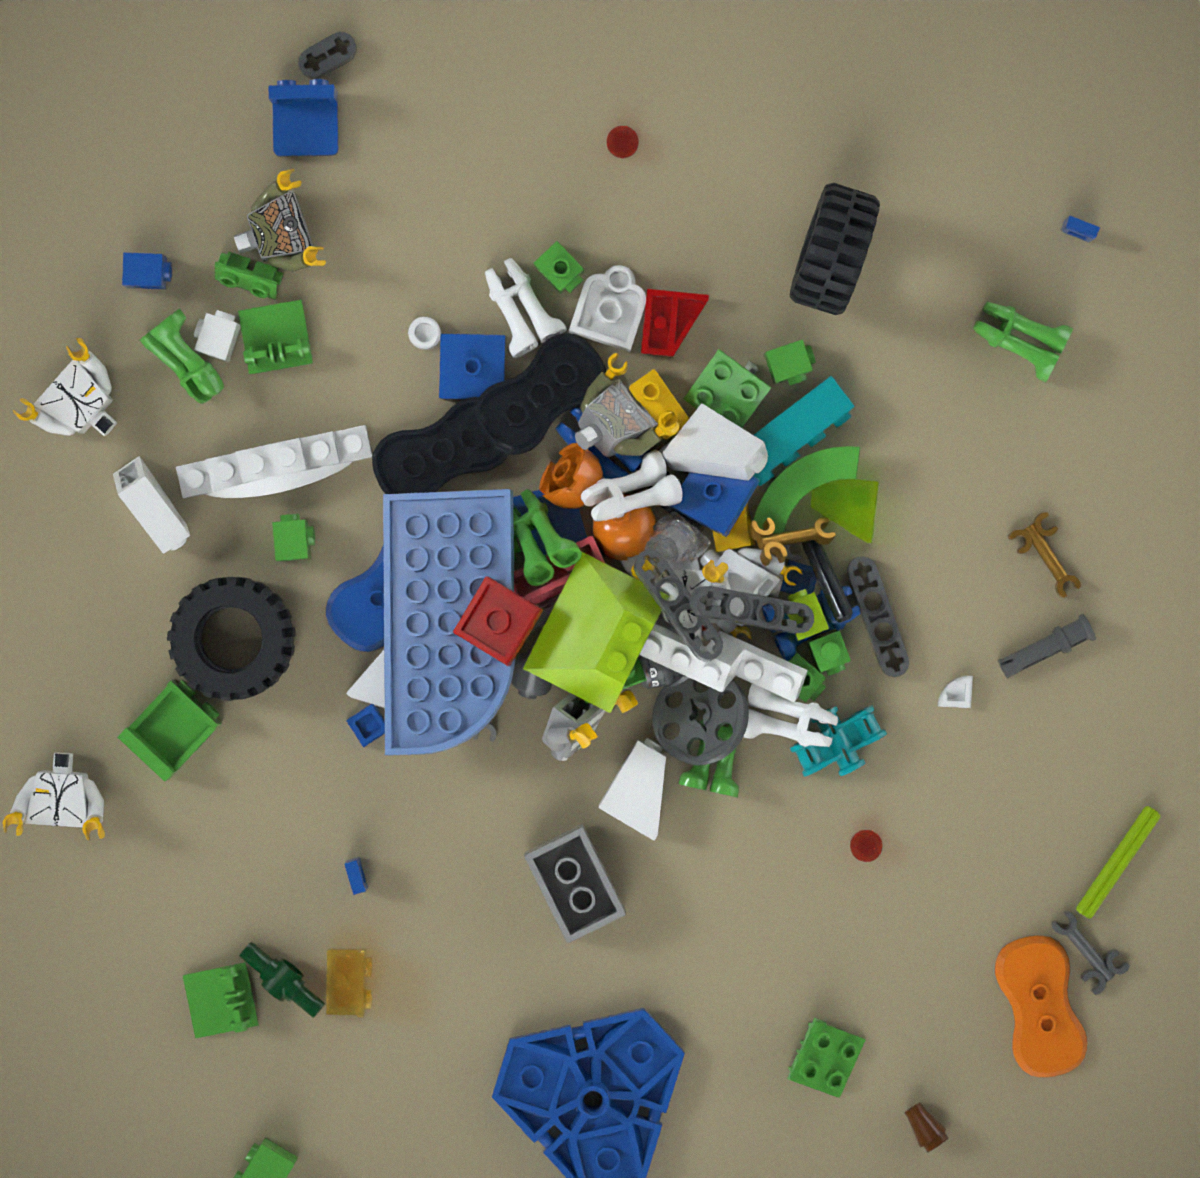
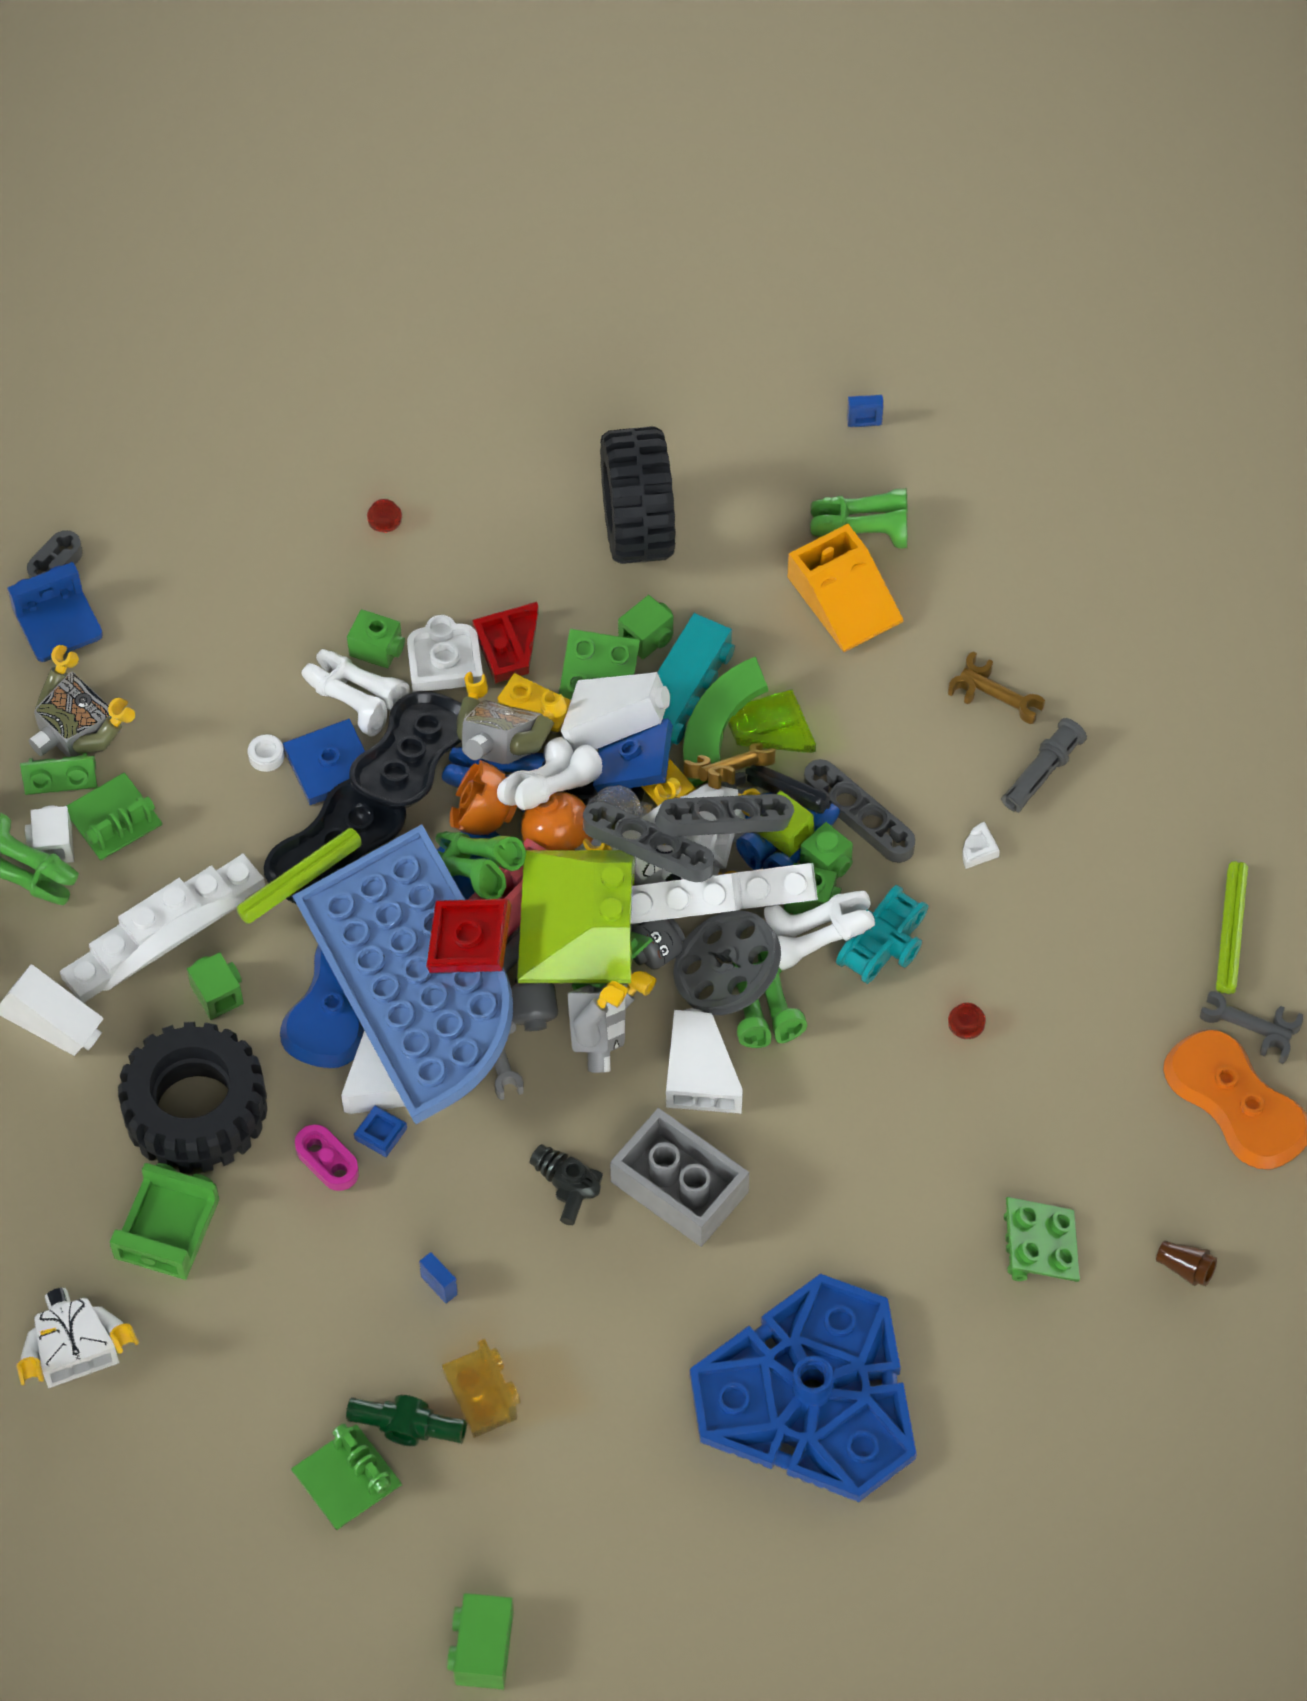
camera: 20 degrees left, 30 degrees down
(316, 731) = (329, 1159): none -> dark pink plate
(398, 475) = (299, 875): none -> lime axle
(495, 839) = (570, 1177): none -> pearl dark grey piece
(970, 405) = (843, 587): none -> light orange slope

